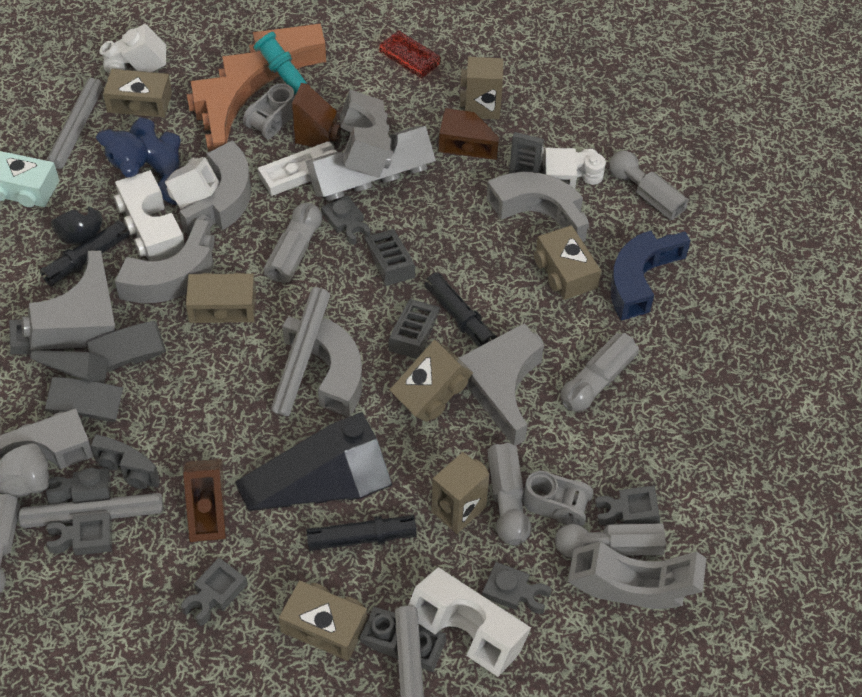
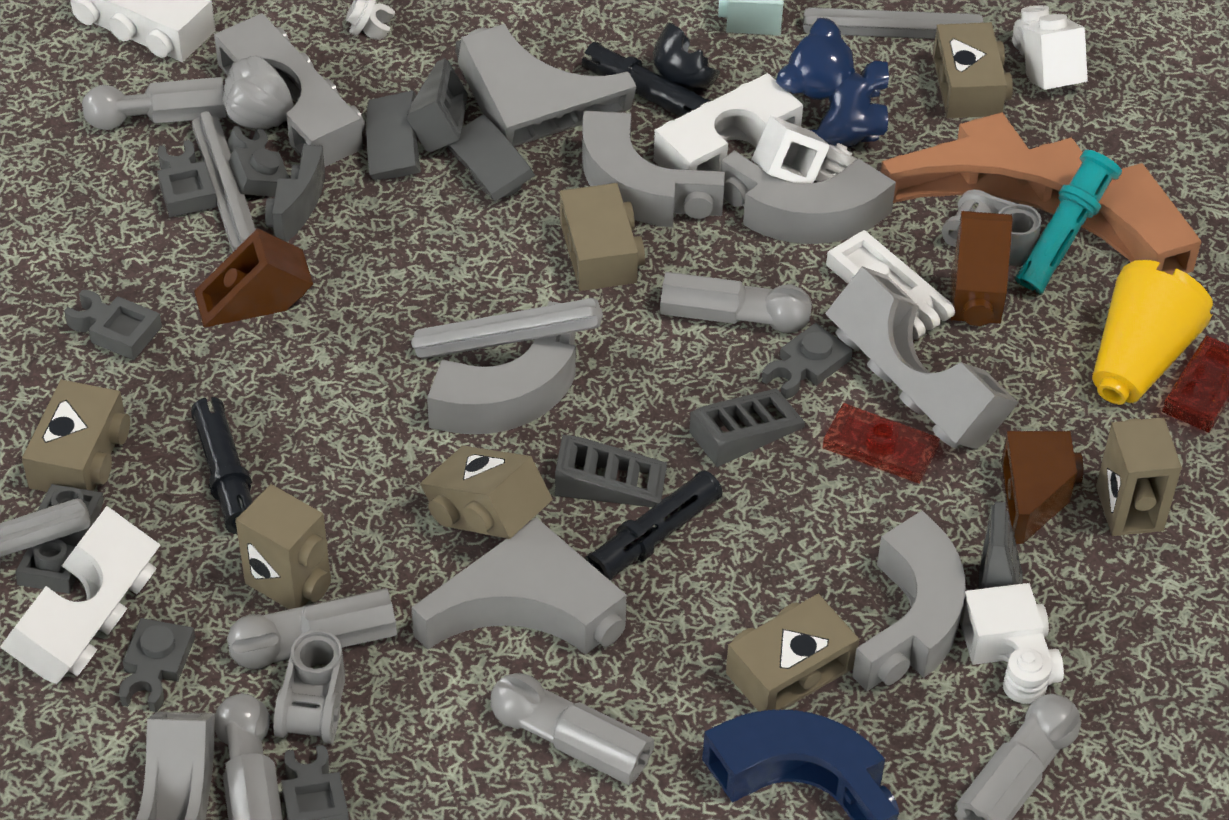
camera: 80 degrees right, 5 degrees down
(327, 466) = (326, 406): black wedge -> none
(369, 141) = (904, 323): light grey arch -> none
(376, 63) = (1147, 328): none -> yellow cone
(417, 198) = (881, 443): none -> clear red plate

